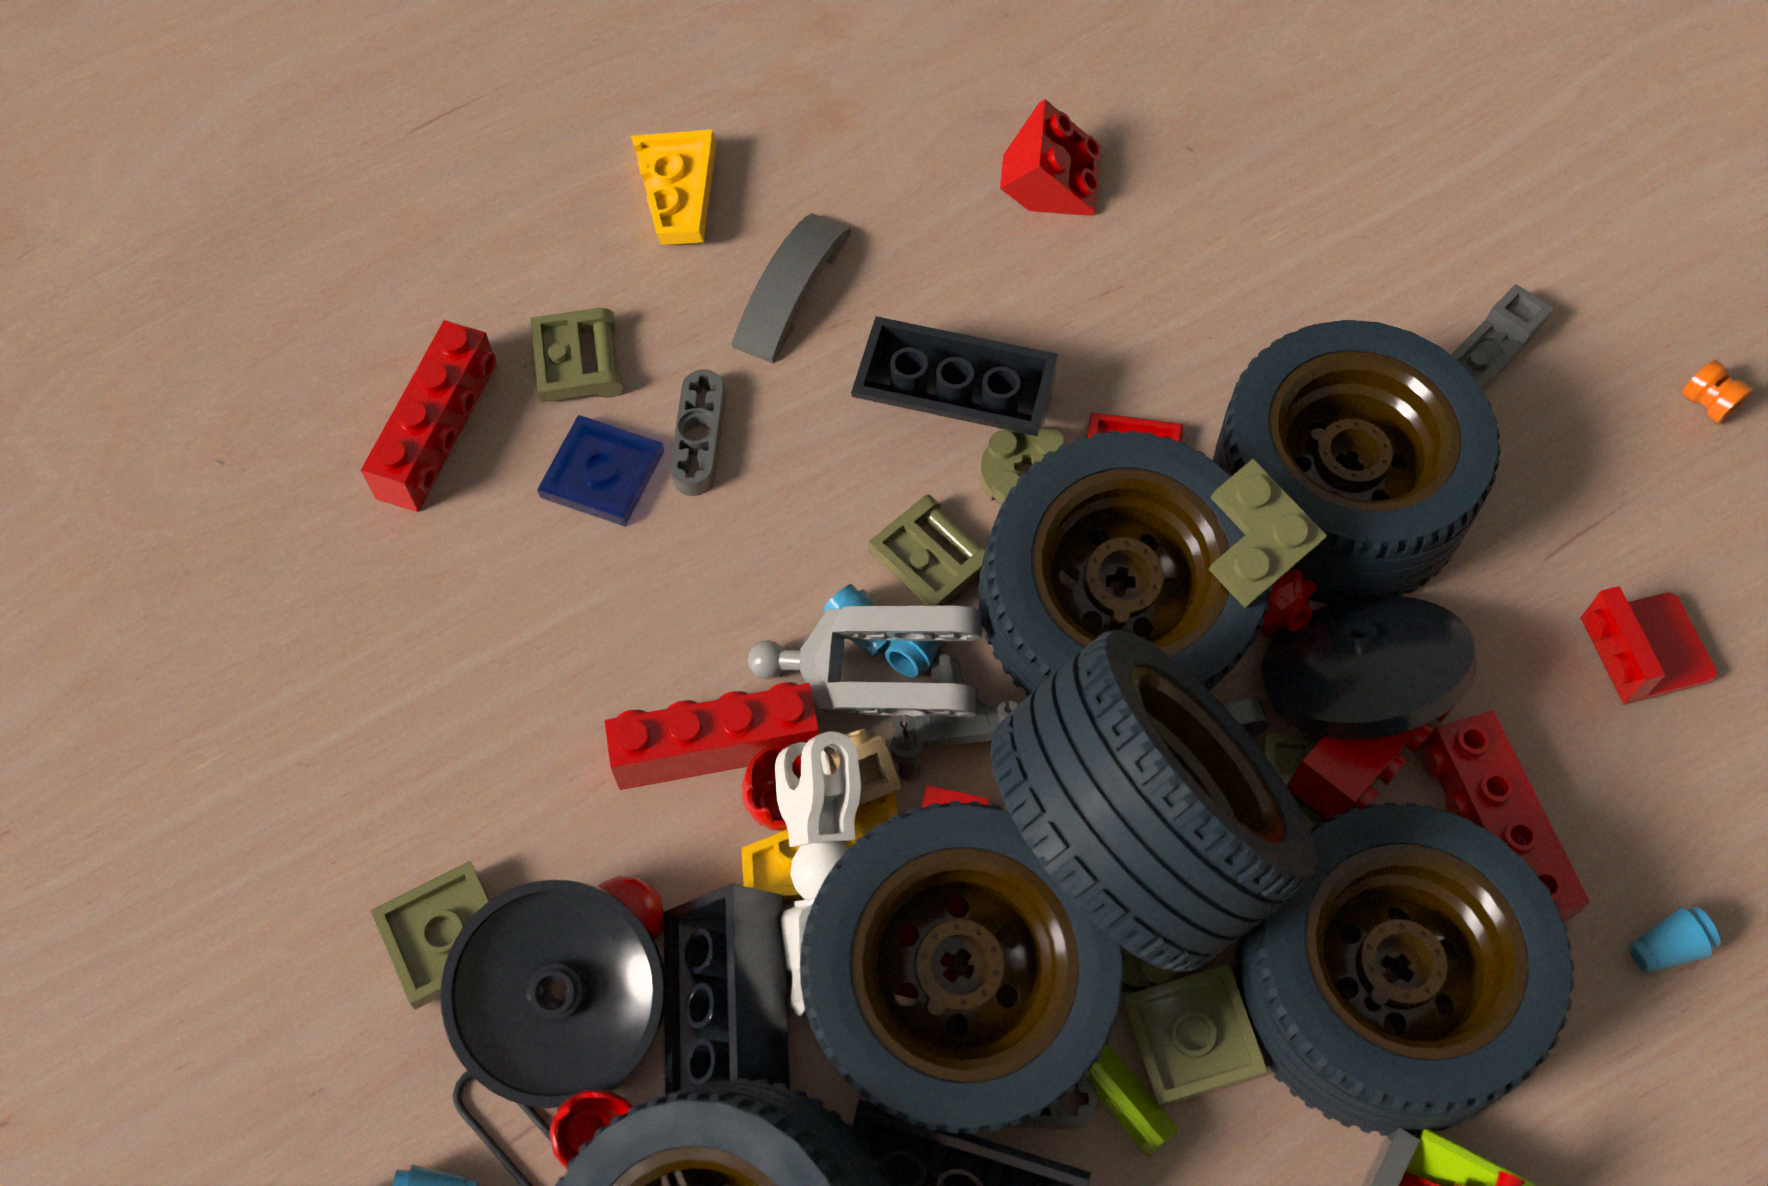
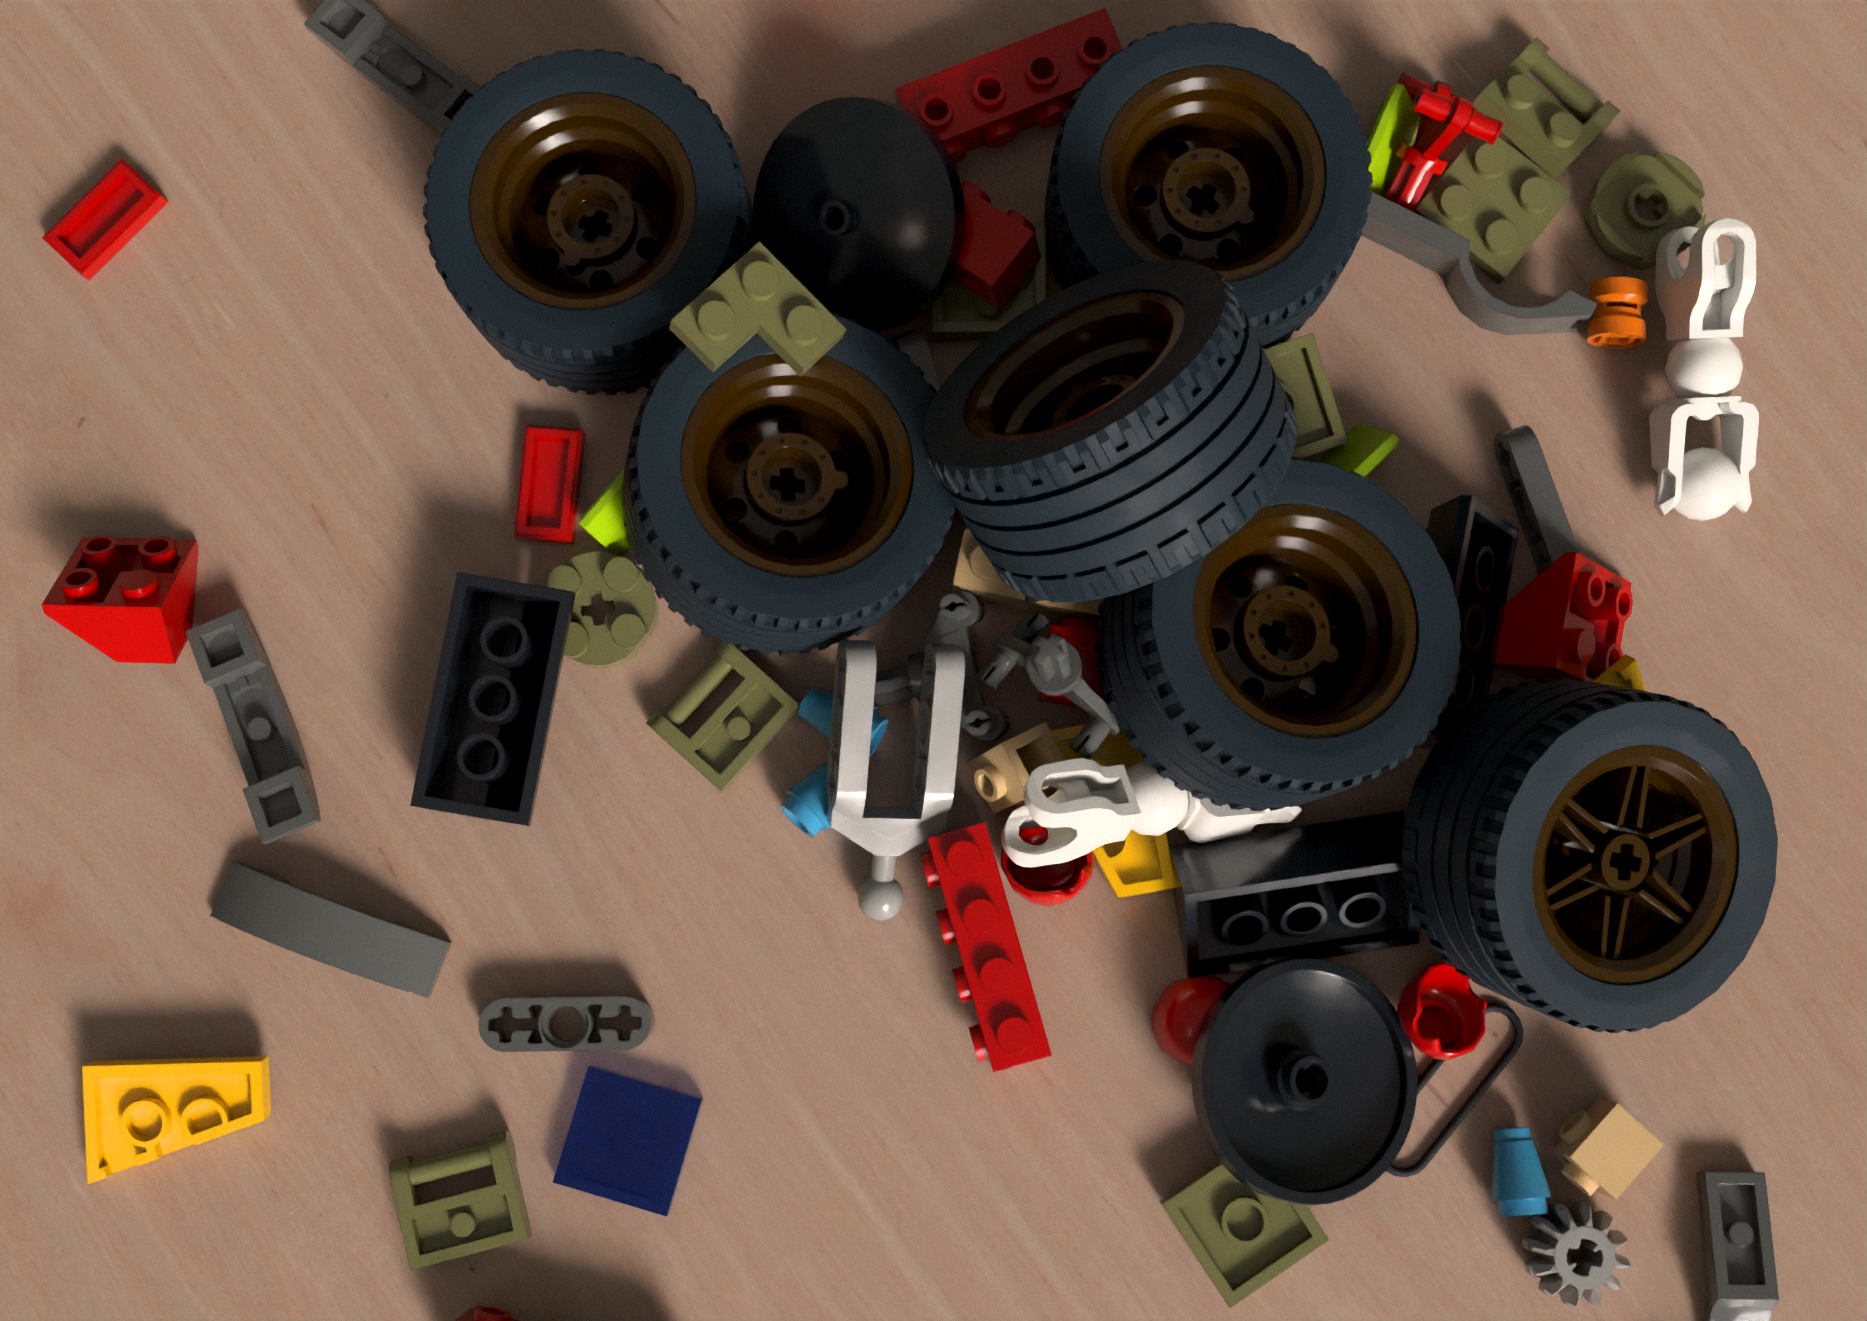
camera: 95 degrees left, 20 degrees up
(943, 778) = (1054, 670): none -> dark grey axle
(952, 245) = (259, 724): none -> dark grey slope
(1348, 163) = (105, 219): none -> red tile

